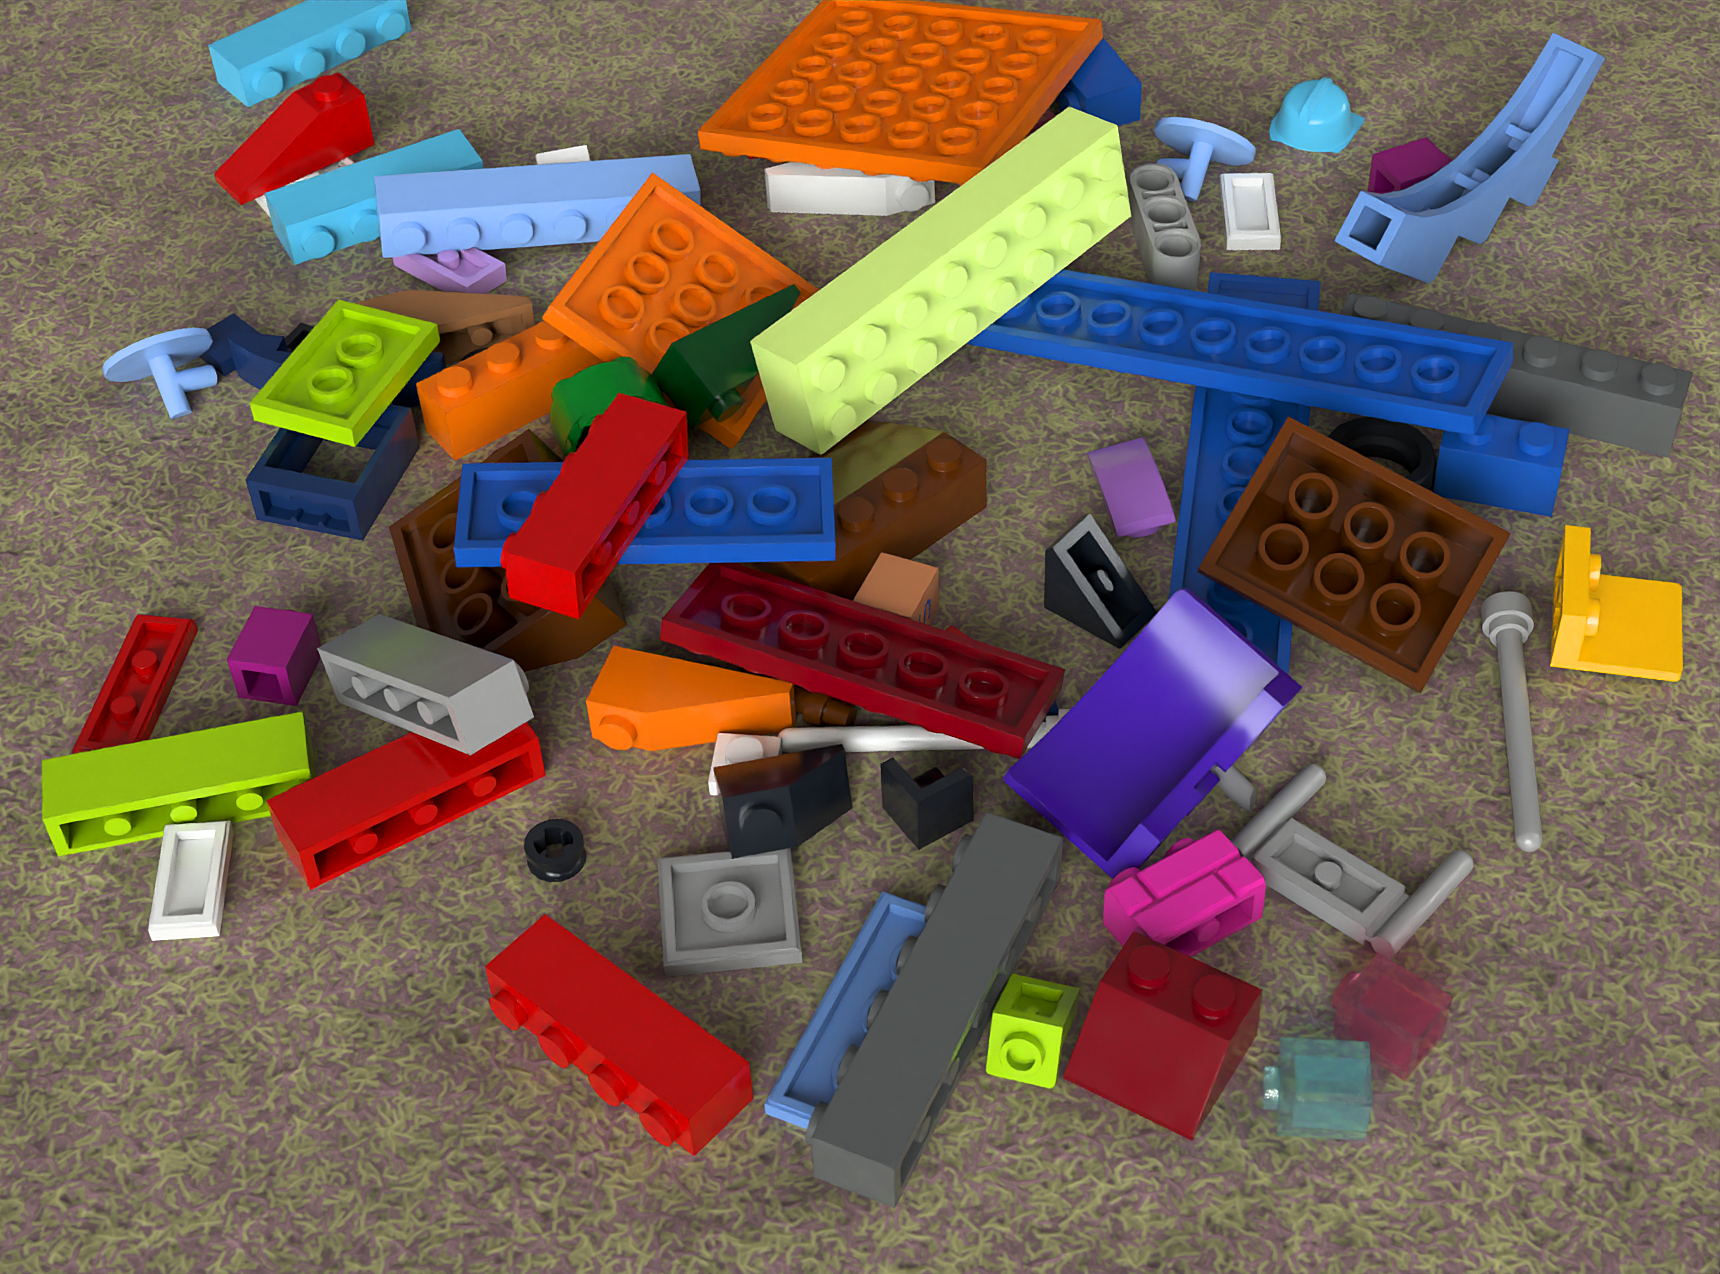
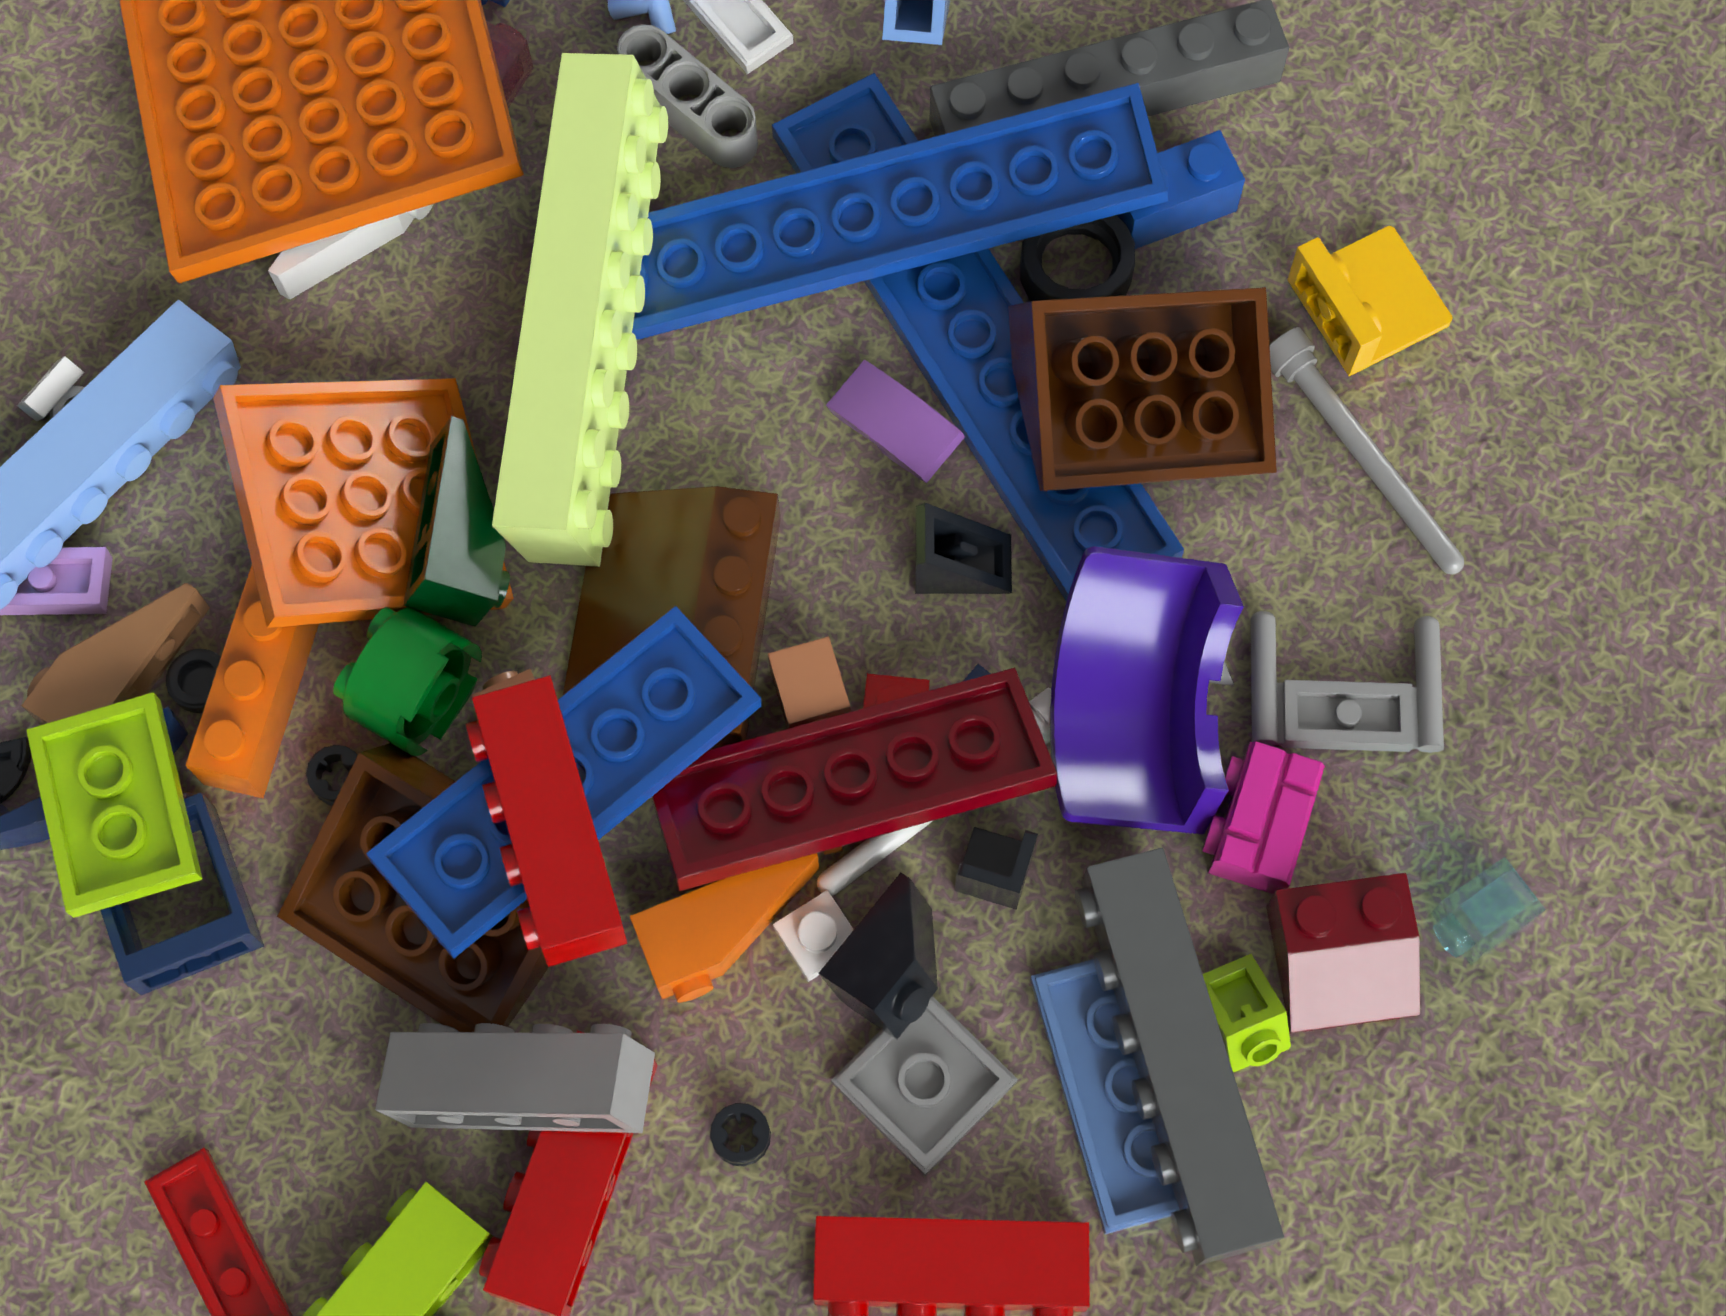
camera: 40 degrees left, 25 degrees up
(275, 655) = (323, 1131): magenta brick -> none
(1392, 1012) = (1485, 810): clear pink brick -> none

